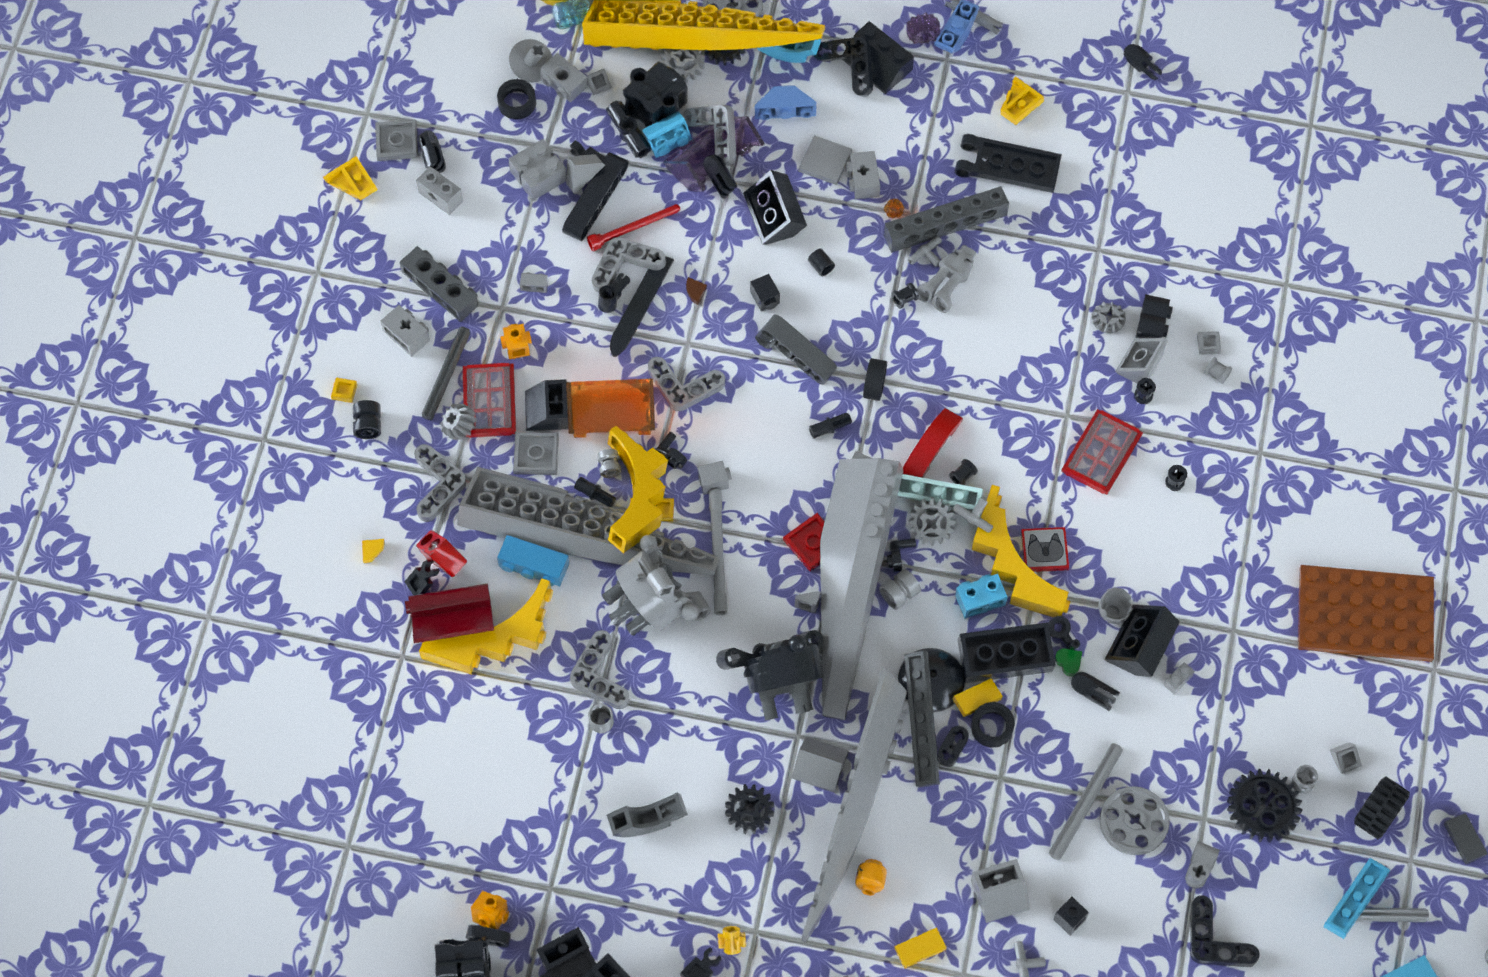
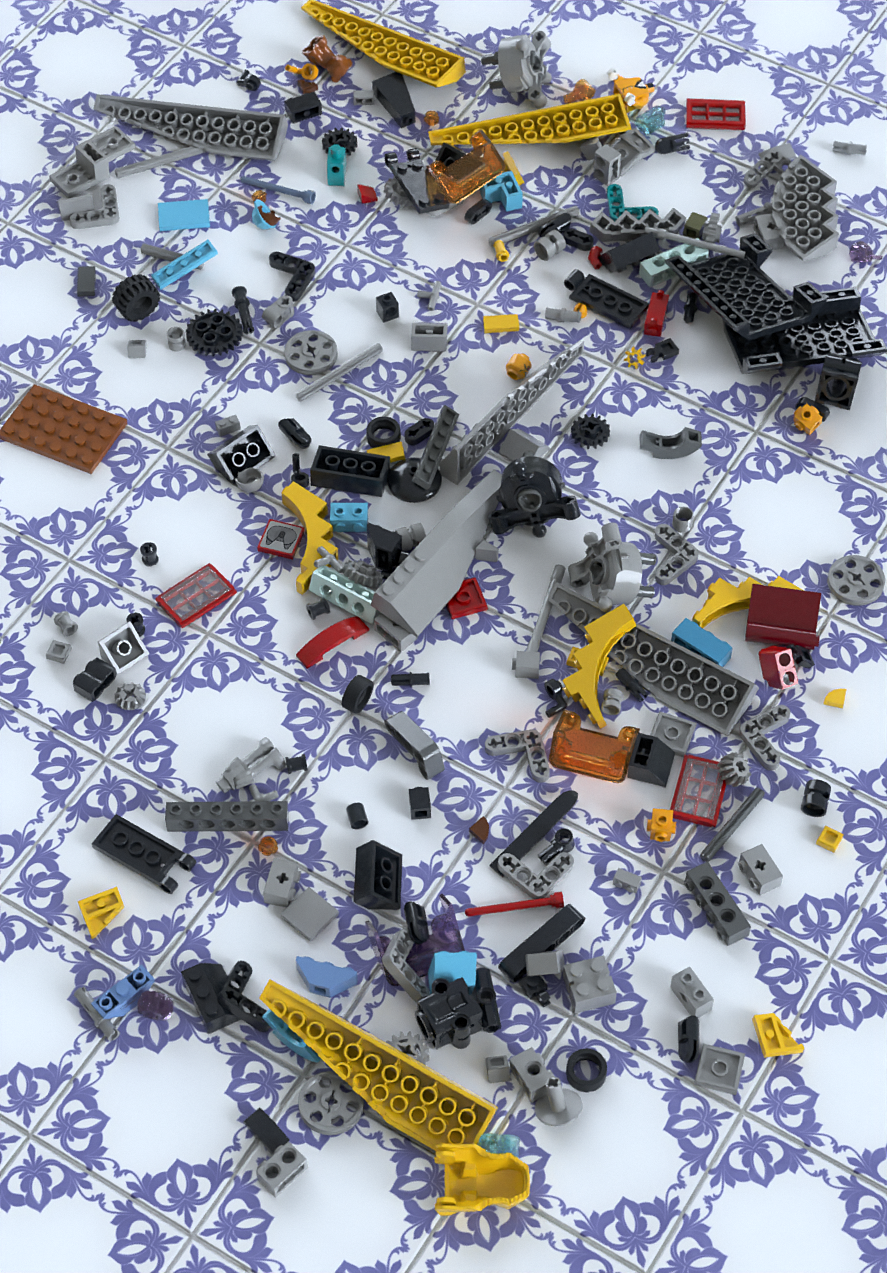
camera: 160 degrees left, 10 degrees down
(383, 715) = (855, 573): none -> light grey wedge
(924, 557) = (384, 547): none -> black slope
(1068, 660) = (305, 460): green tile -> none
(1253, 863) = (242, 303): none -> black pin

